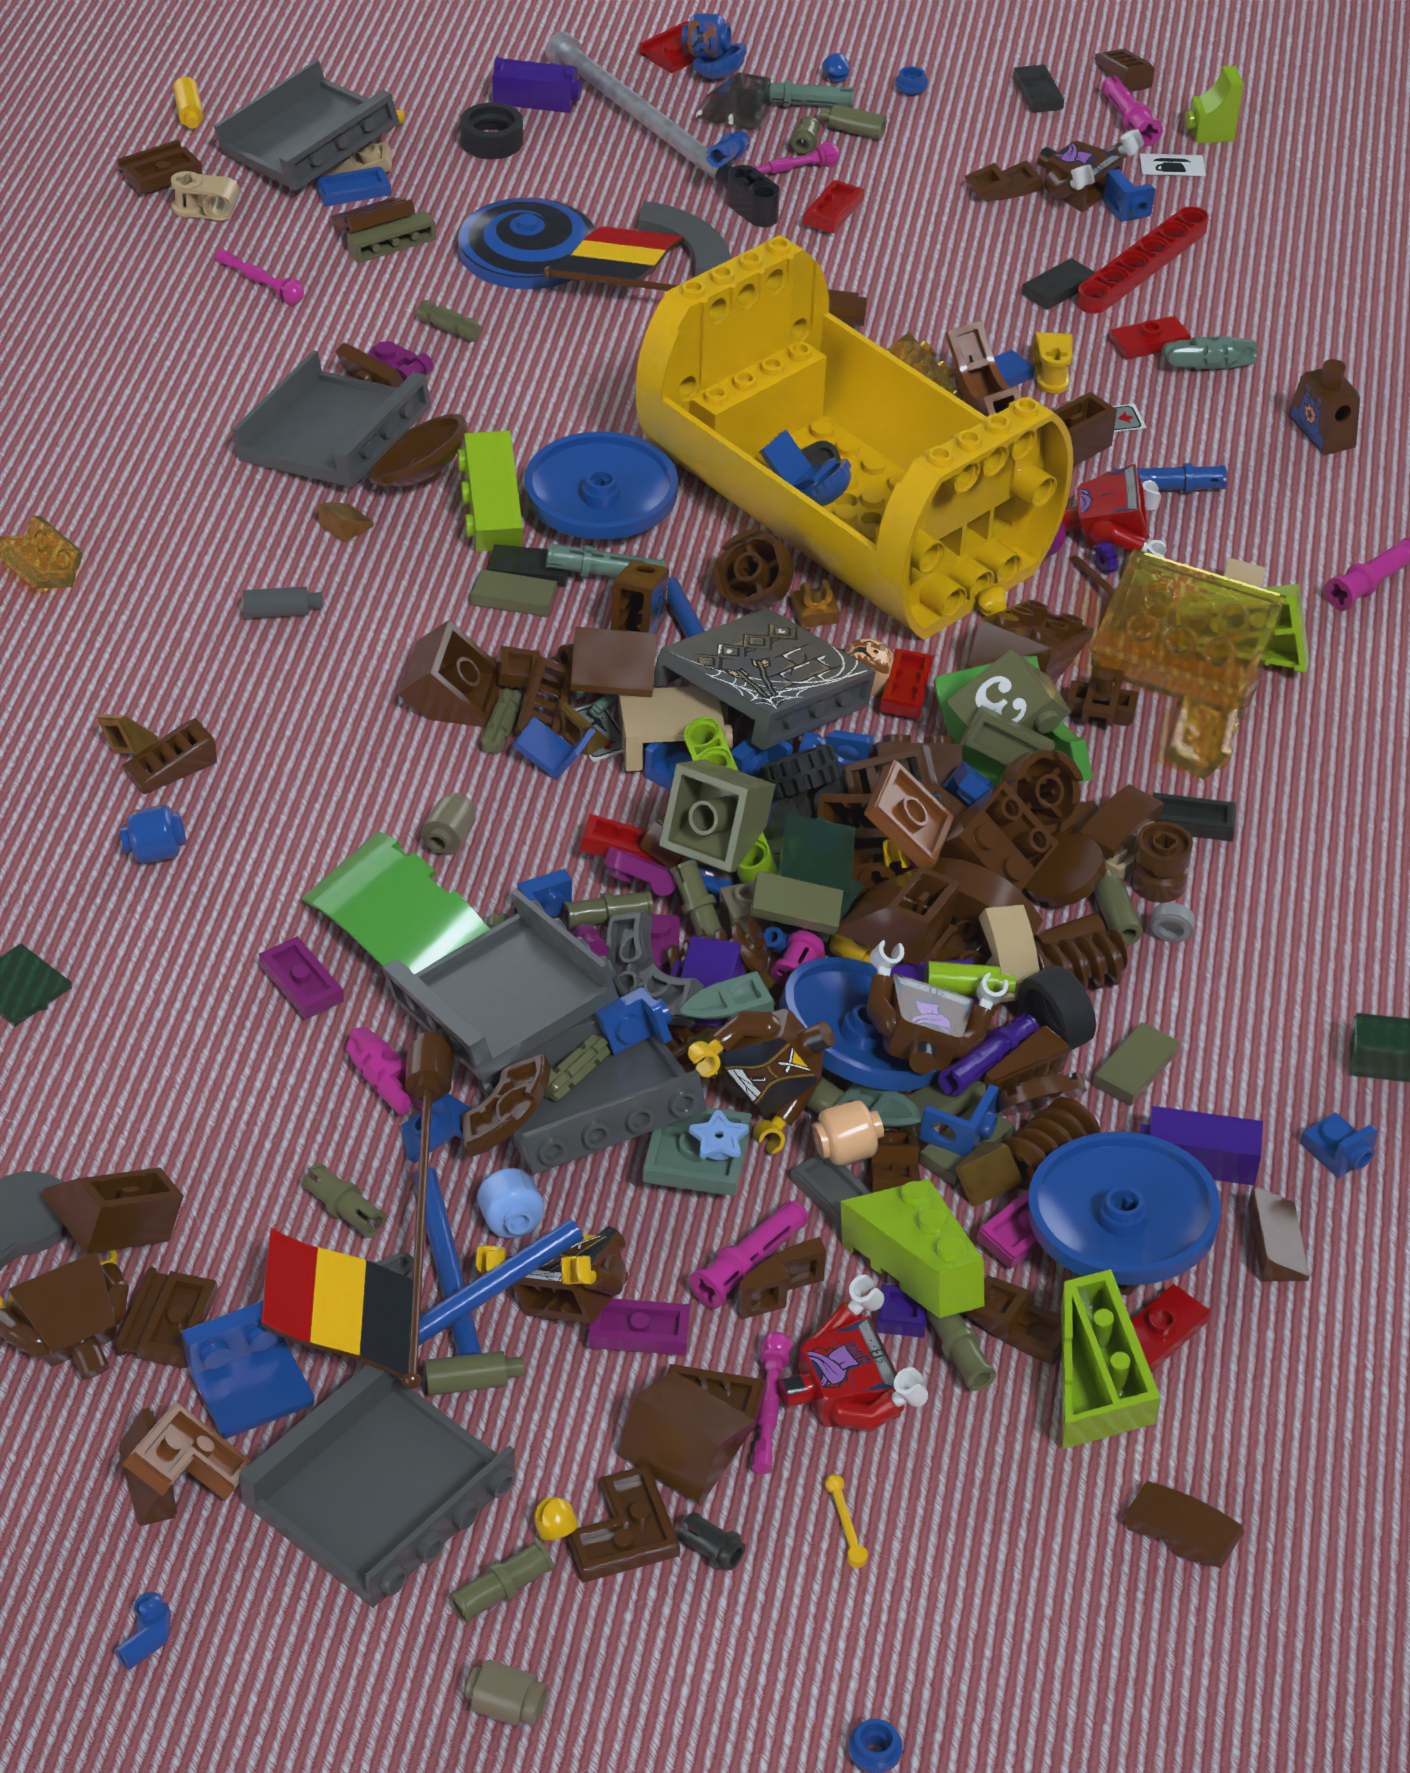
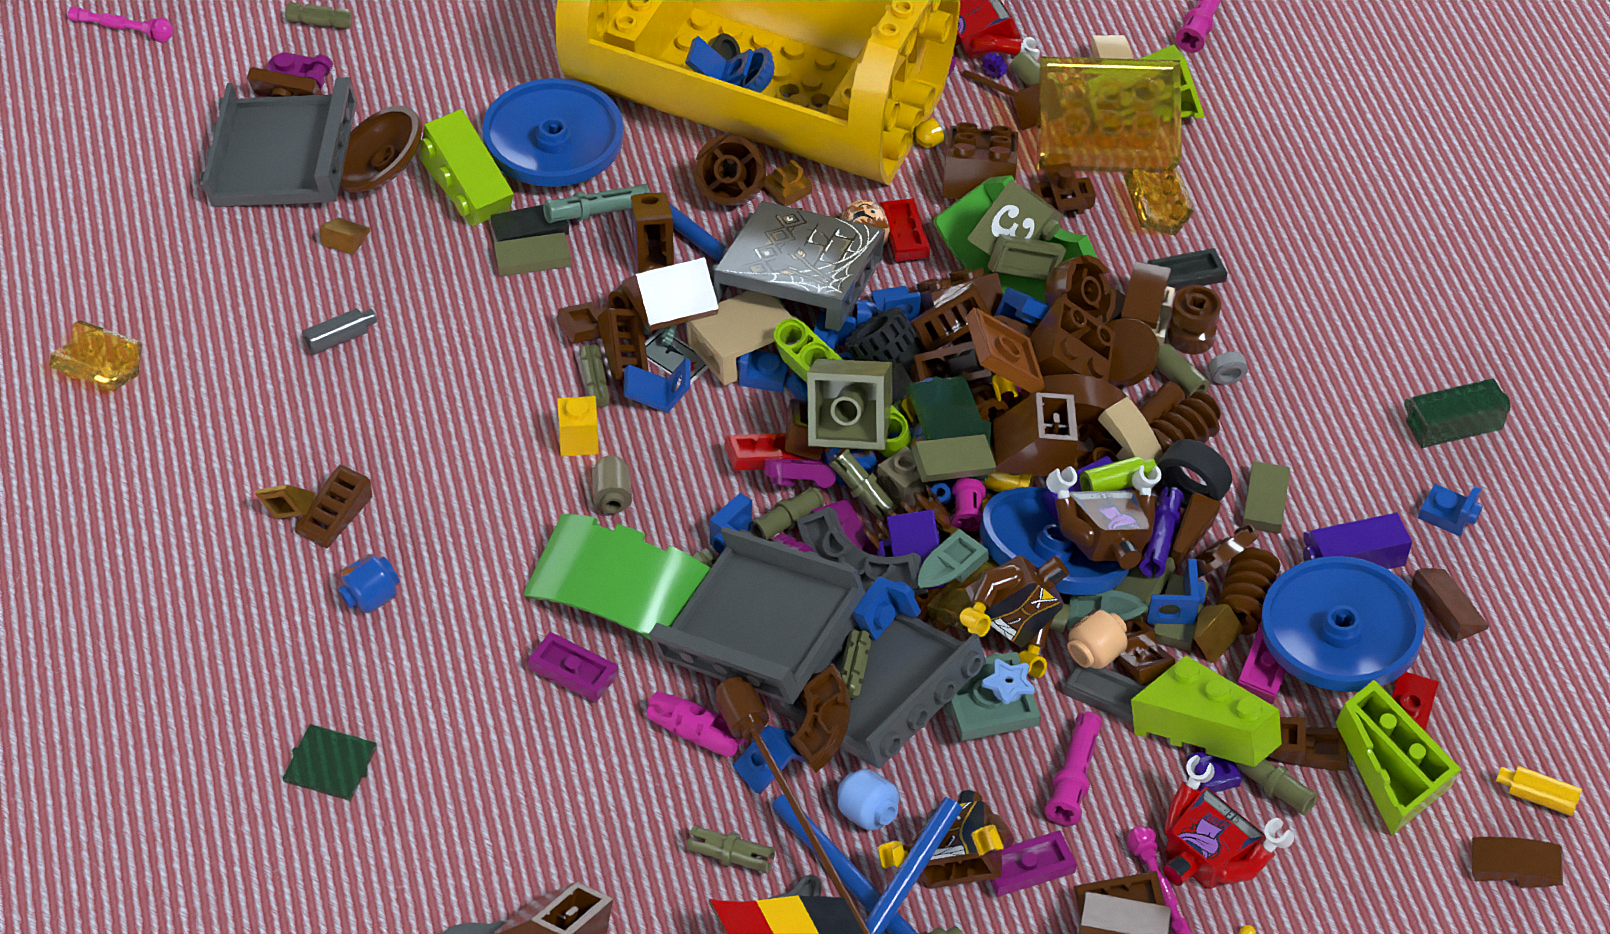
camera: 25 degrees left, 5 degrees up
(449, 758) = (578, 426): none -> yellow brick
(451, 678) = (531, 352): reddish brown slope -> none
(575, 726) = (663, 360): pearl gold slope -> none
(768, 1283) = (1113, 779): reddish brown slope -> none
(1259, 1462) = (1540, 789): none -> yellow cylinder

